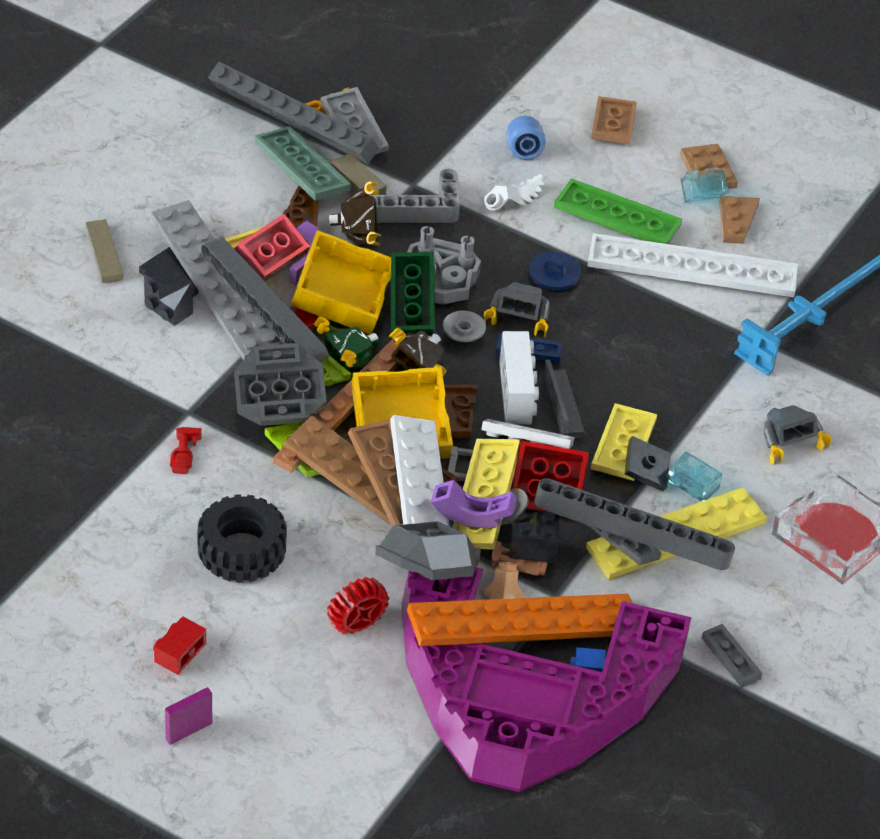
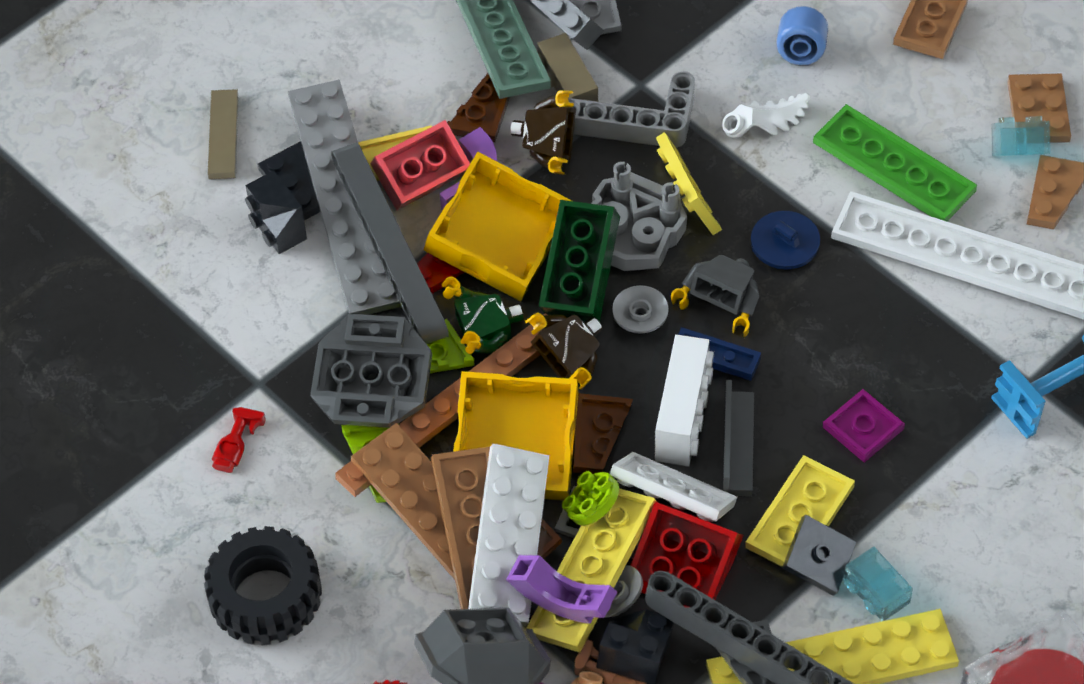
camera: 20 degrees right, 10 degrees up
(472, 447) = (591, 497): none -> lime tile
(481, 246) = (678, 170): none -> light yellow wing
(649, 381) = (863, 425): none -> magenta tile
(791, 426) = (1028, 528): dark grey torso -> none

